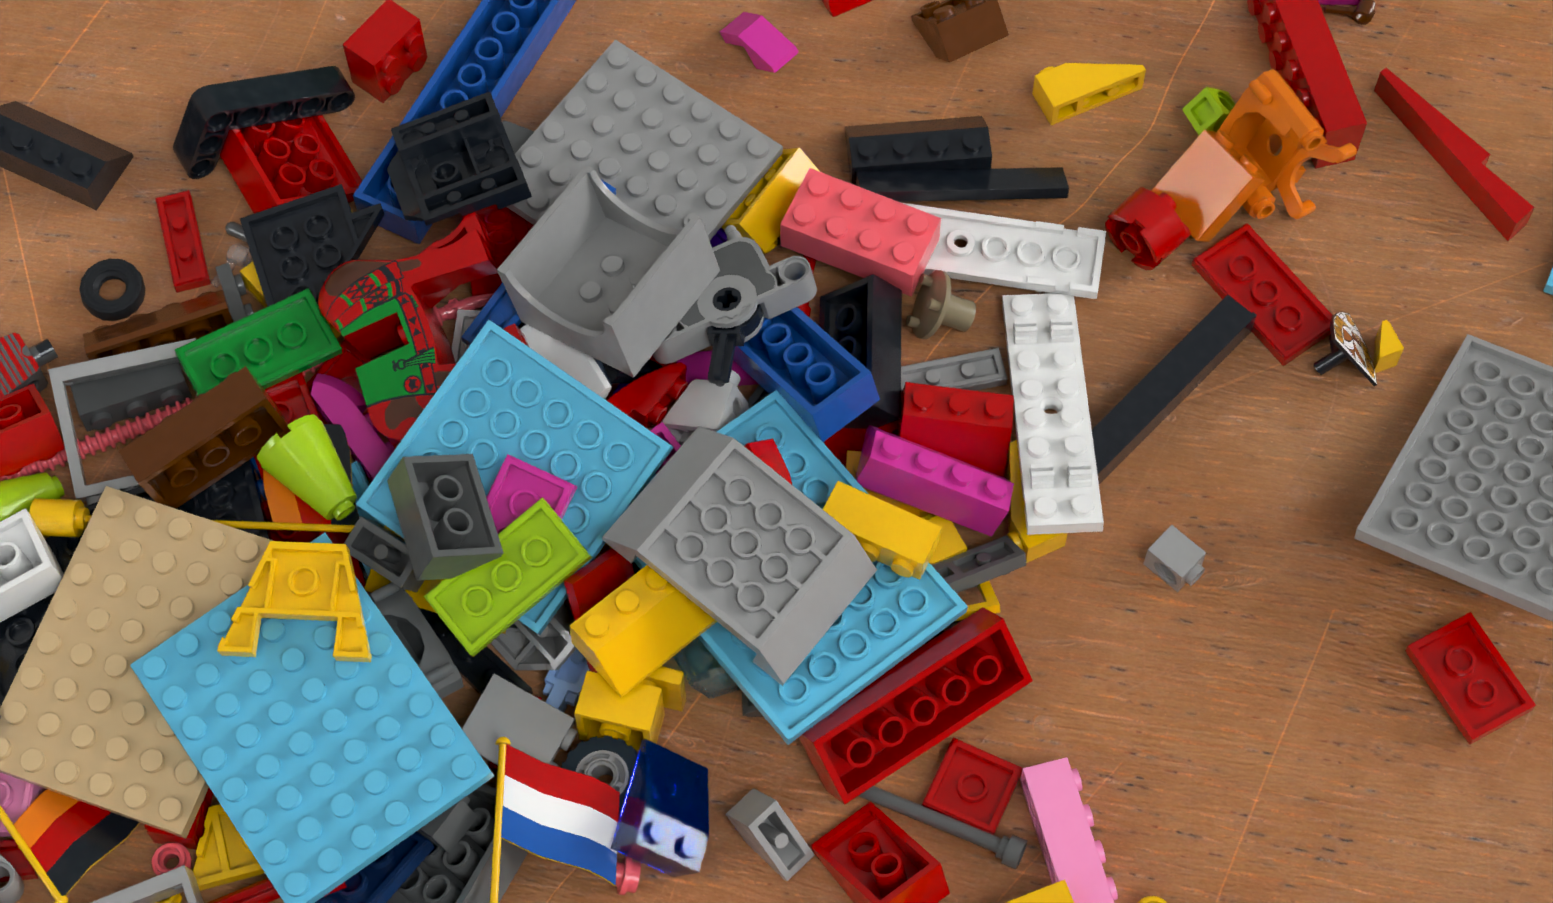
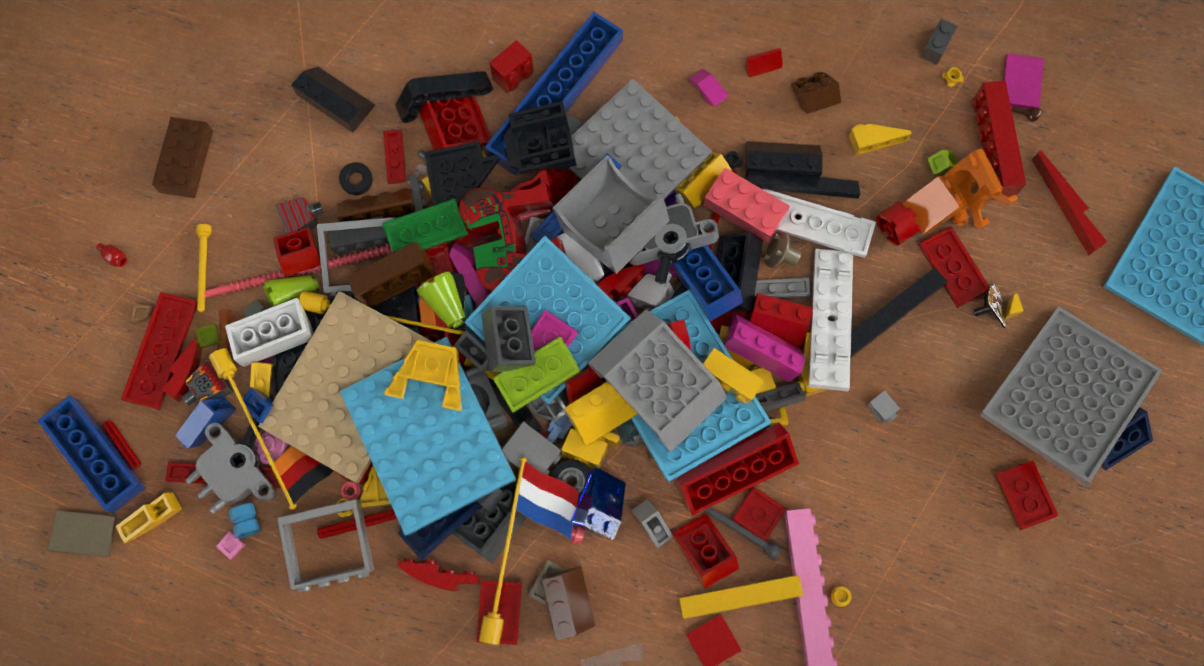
camera: 10 degrees right, 10 degrees up
(826, 156) = (736, 160): none -> black plate

